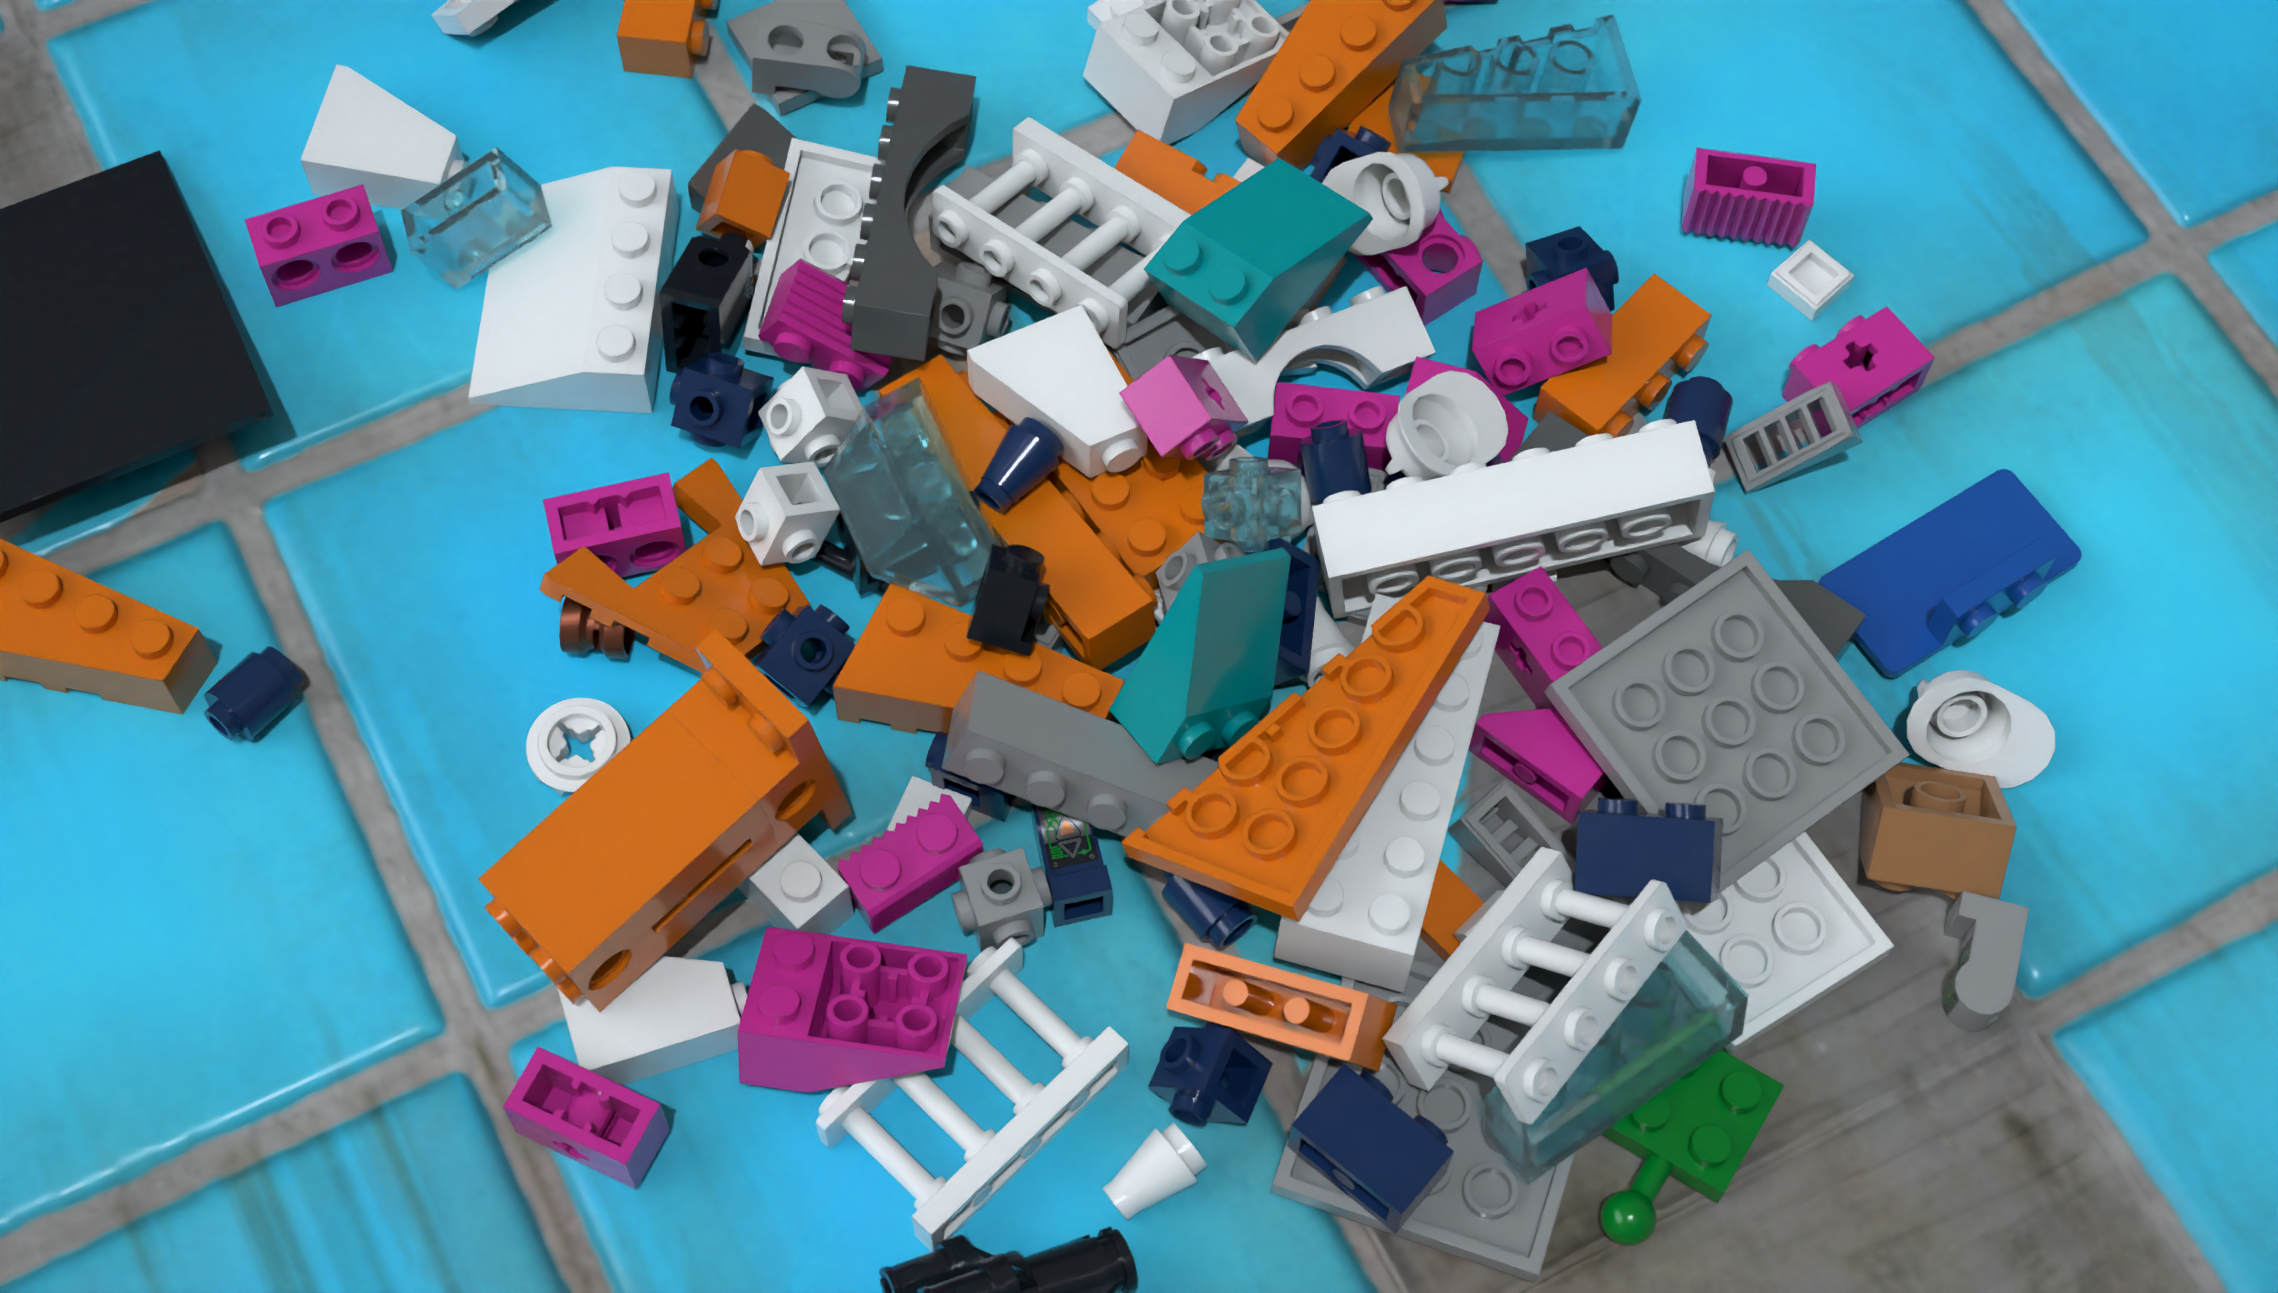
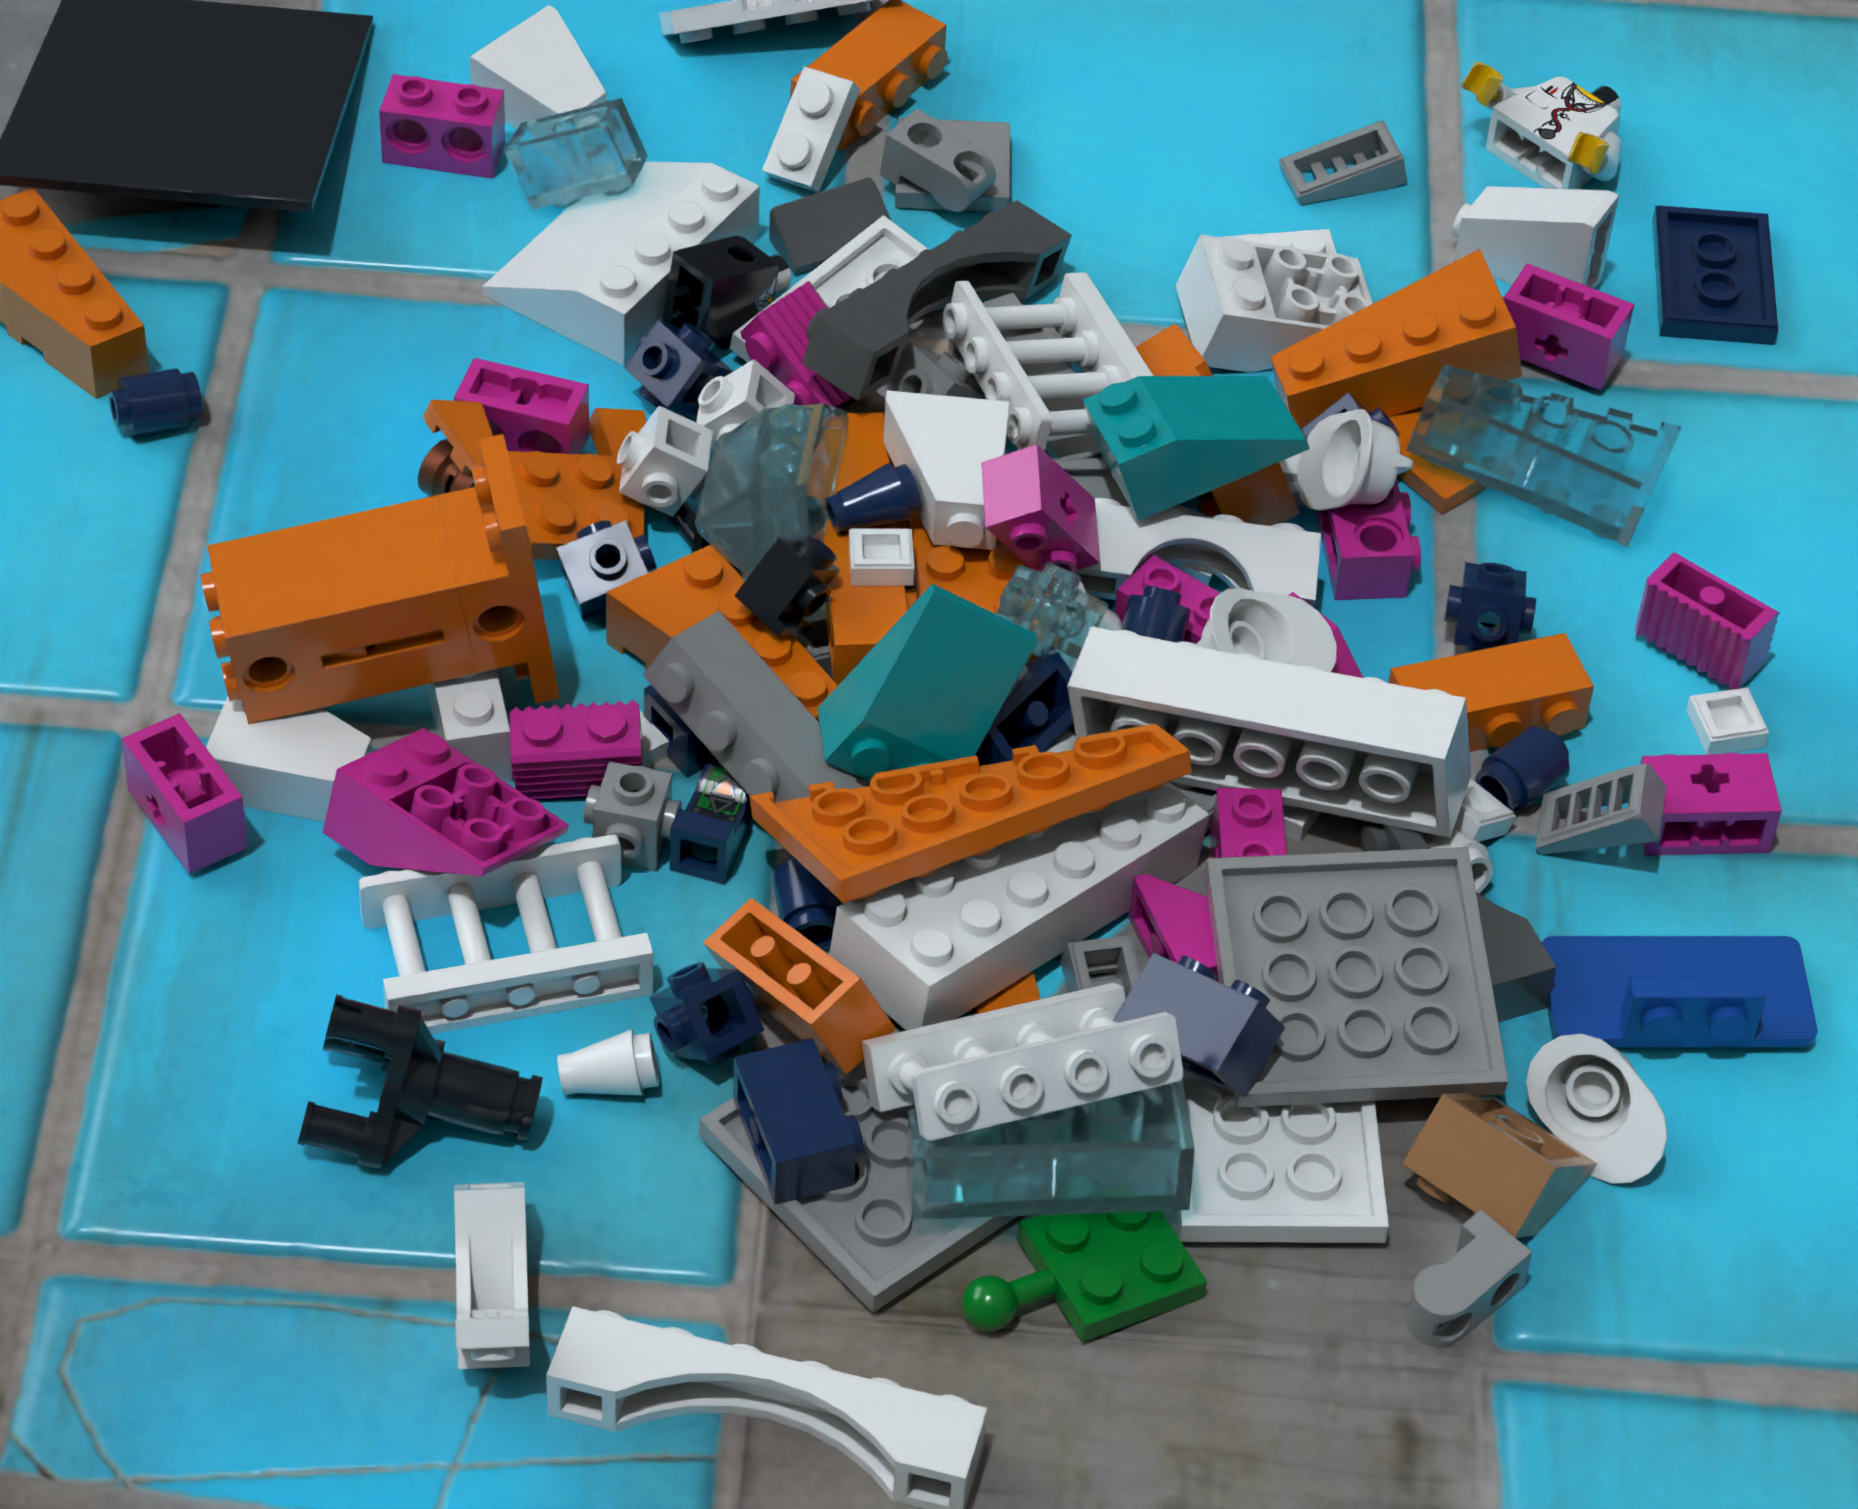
camera: 30 degrees right, 15 degrees down
(666, 78) = (811, 129): none -> white plate
(743, 197) = (809, 234): orange brick -> none
(1063, 521) = (881, 557): none -> white tile
(1542, 332) = (1423, 627): dark pink brick -> none

